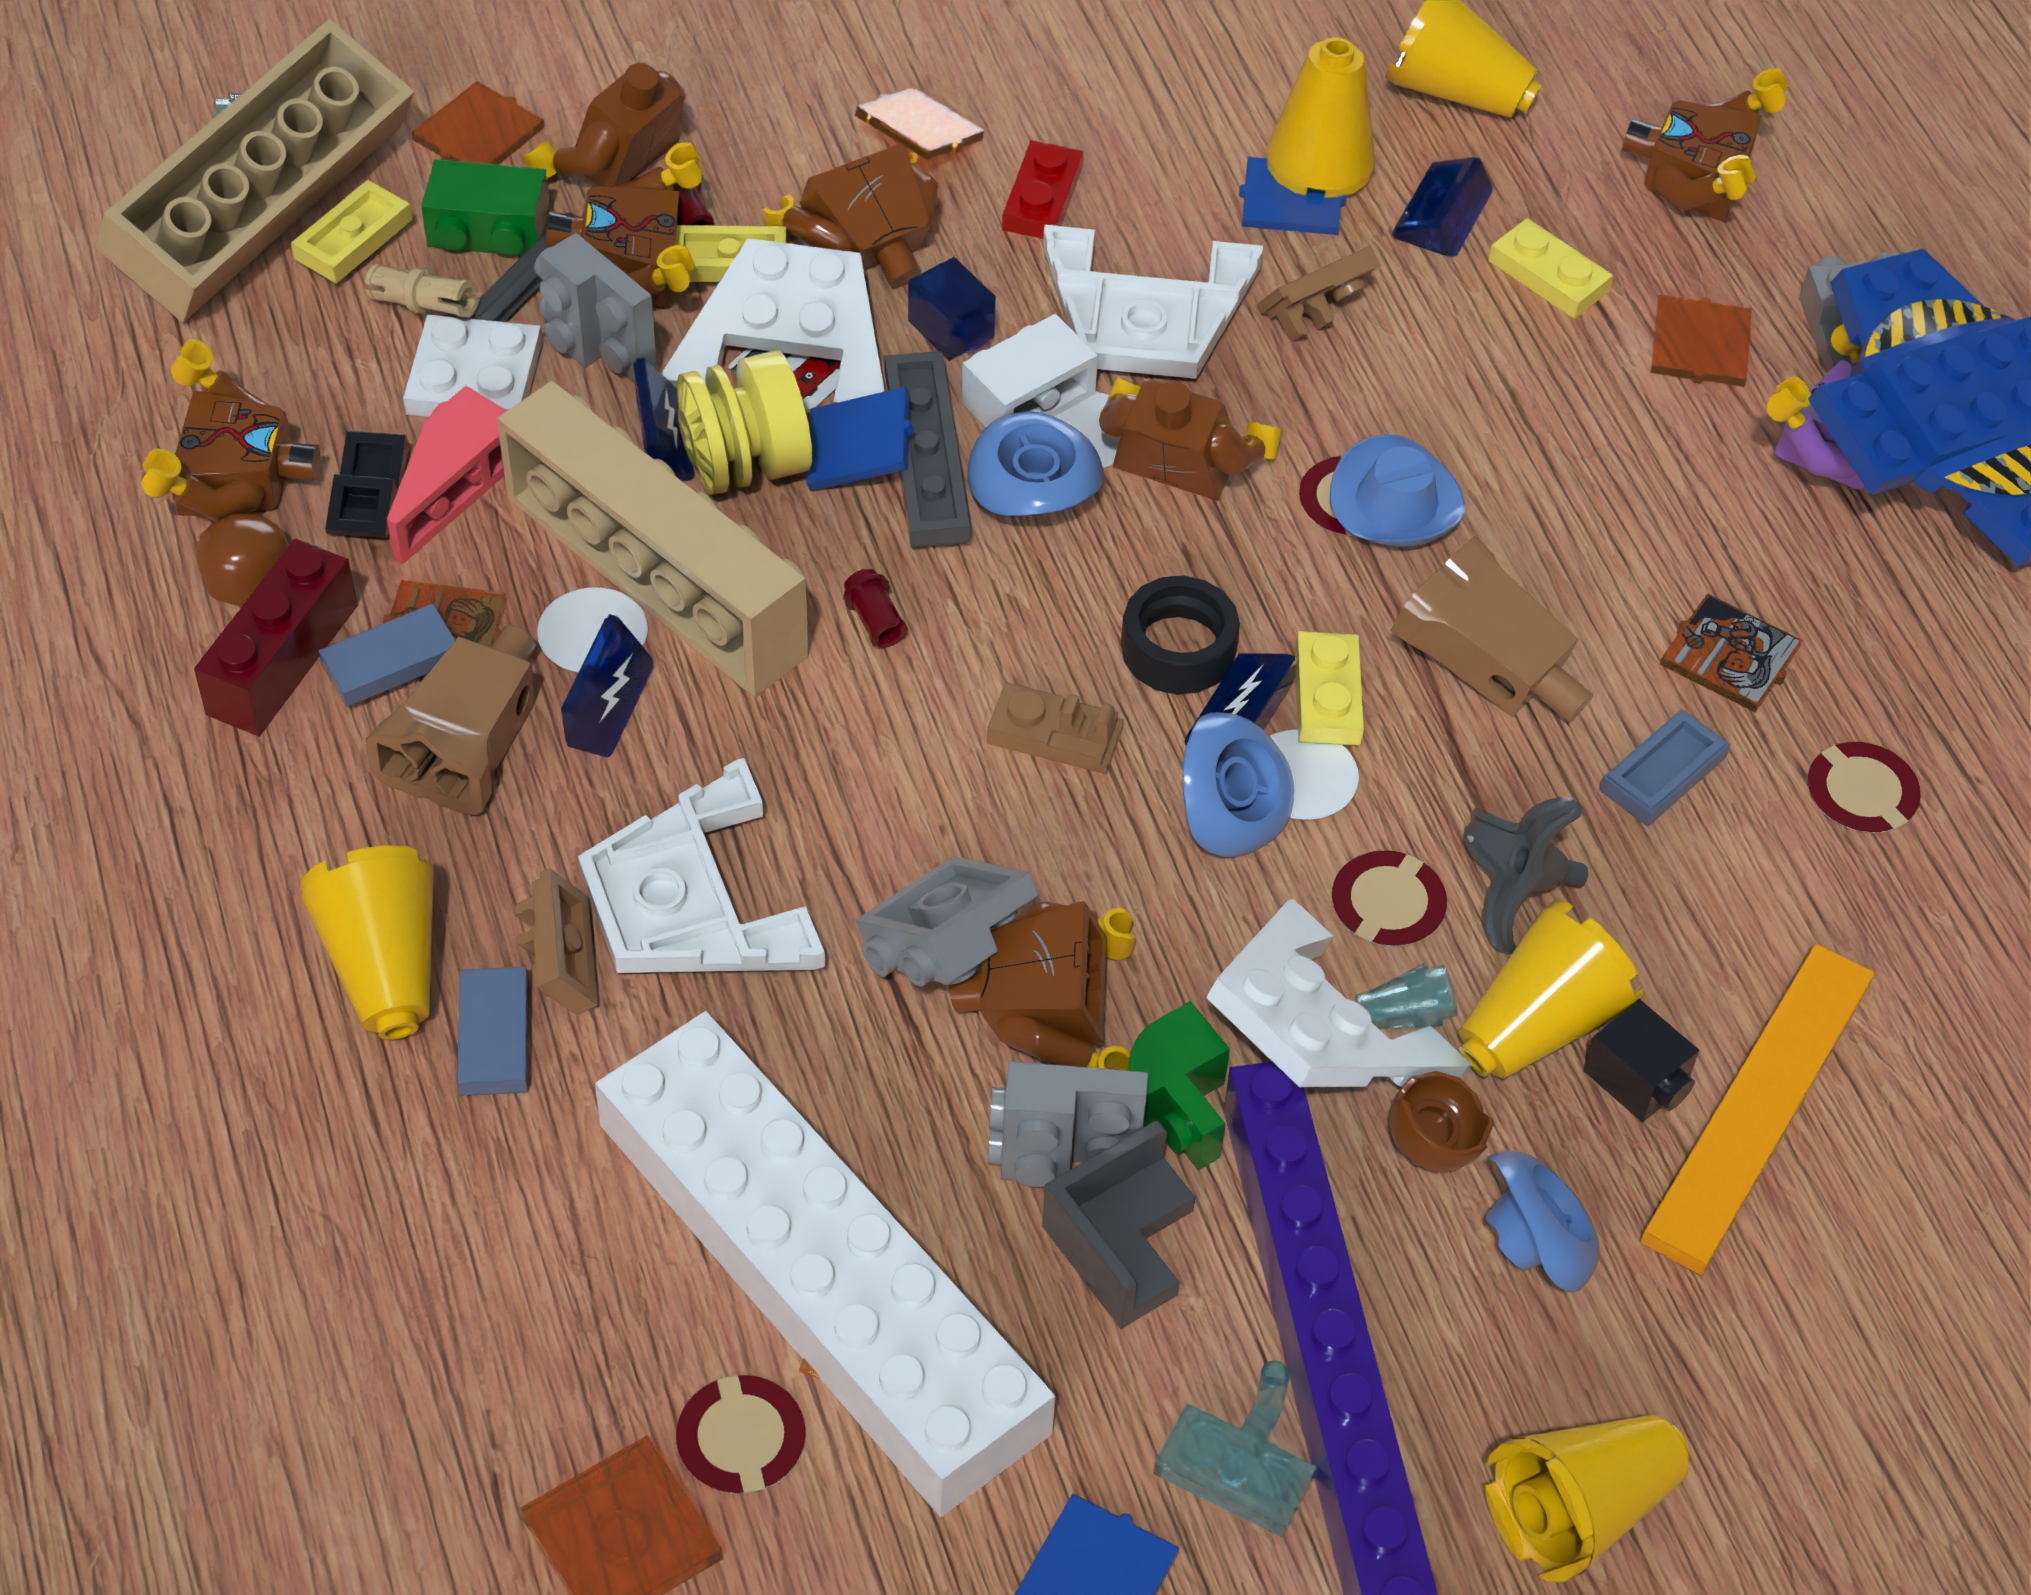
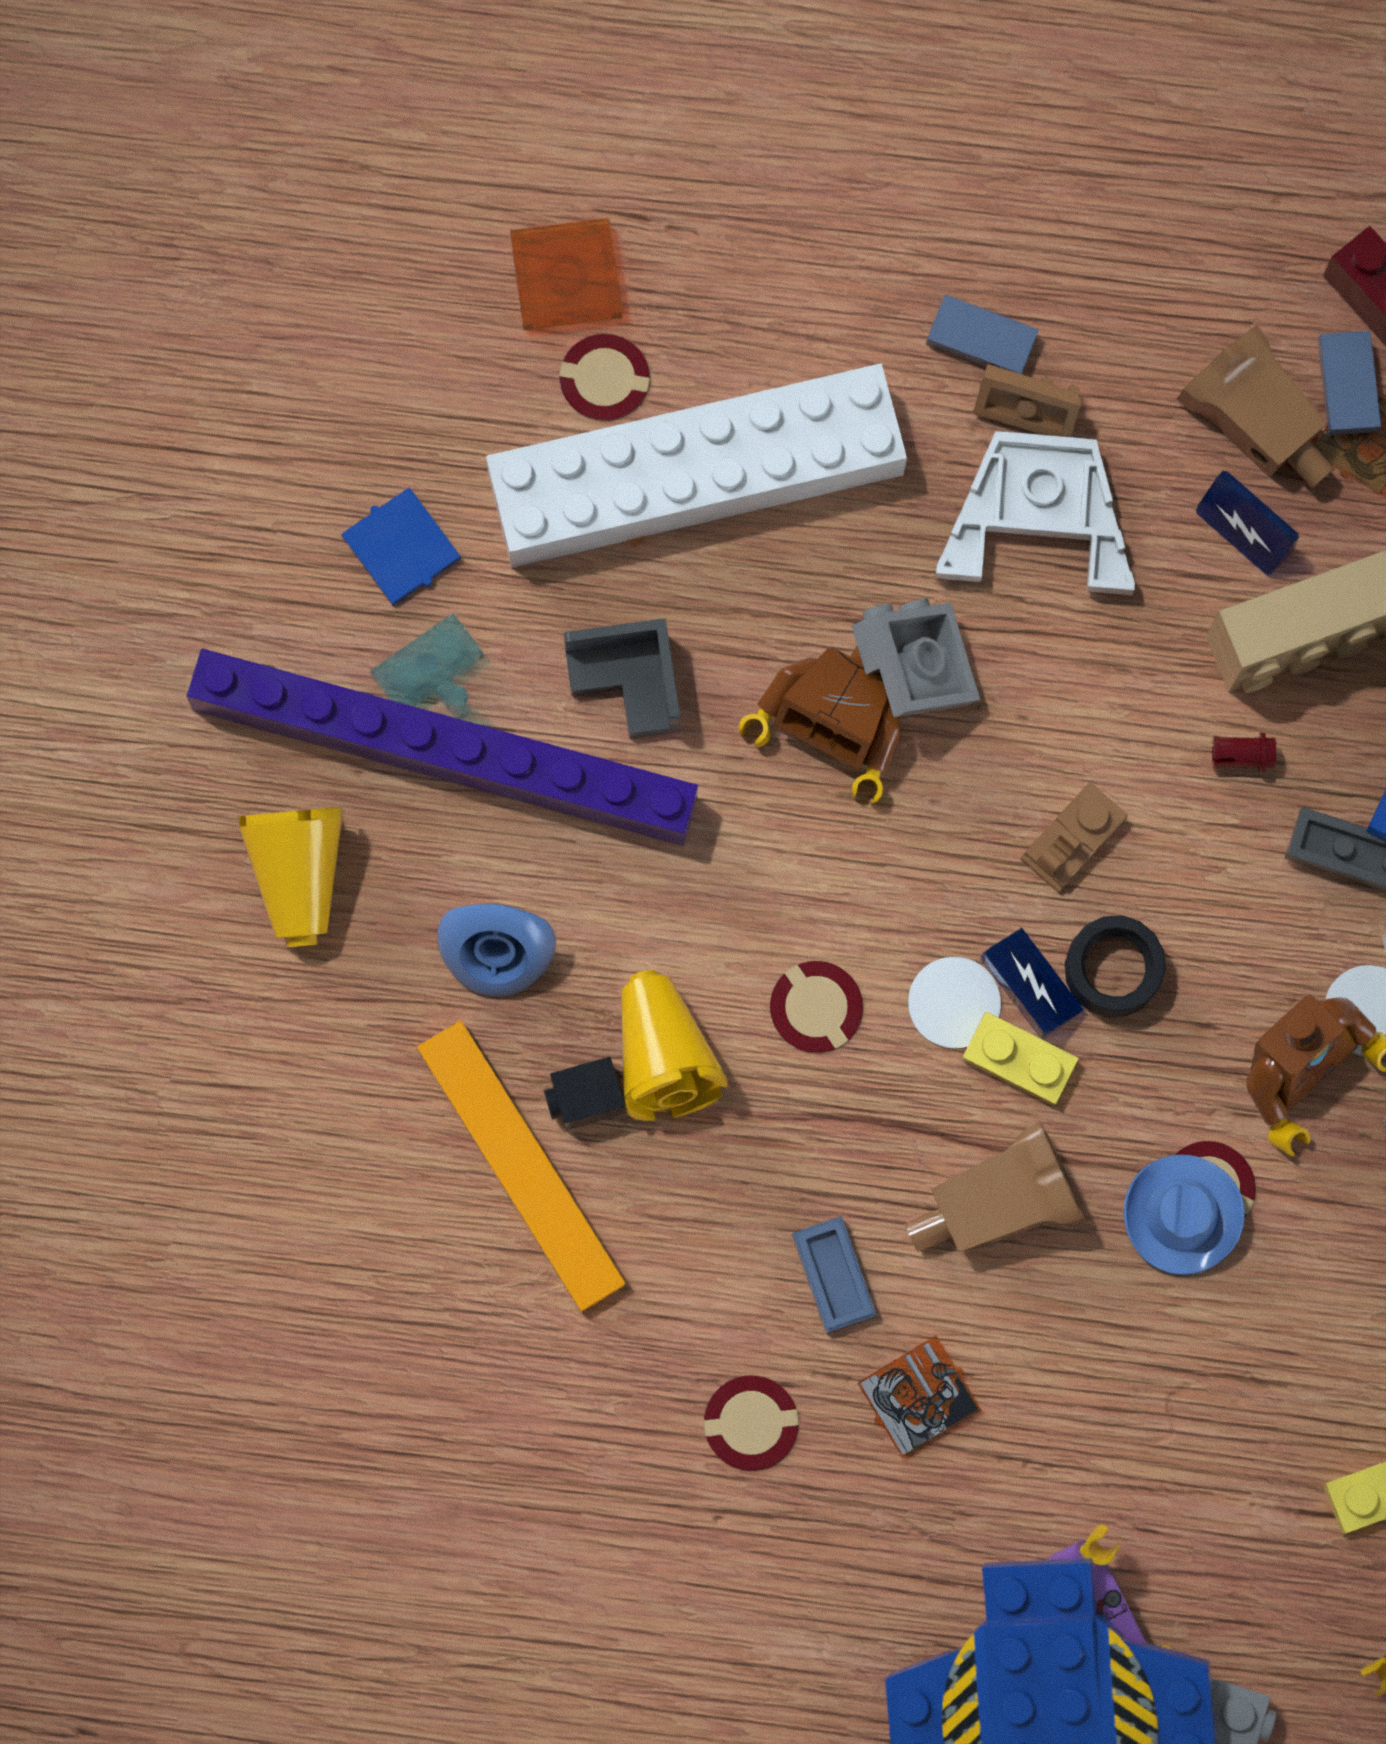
camera: 115 degrees right, 25 degrees up
(377, 933) = (1079, 277): yellow cone -> none
(575, 619) = (1327, 539): white sticker -> none
(1033, 465) = (1326, 933): medium blue hat -> none
(1060, 1117) = (715, 646): light grey plate -> none
(1183, 1065) = (731, 755): green brick -> none
(1235, 785) = (949, 925): medium blue hat -> none
(1309, 1026) = (716, 858): white wing -> none
(1411, 999) = (713, 962): clear light blue cone -> none
(1439, 1122) = (602, 922): dark orange hair -> none
(1521, 862) = (786, 1103): dark grey piece -> none
(1701, 340) = (1249, 1576): clear orange piece -> none

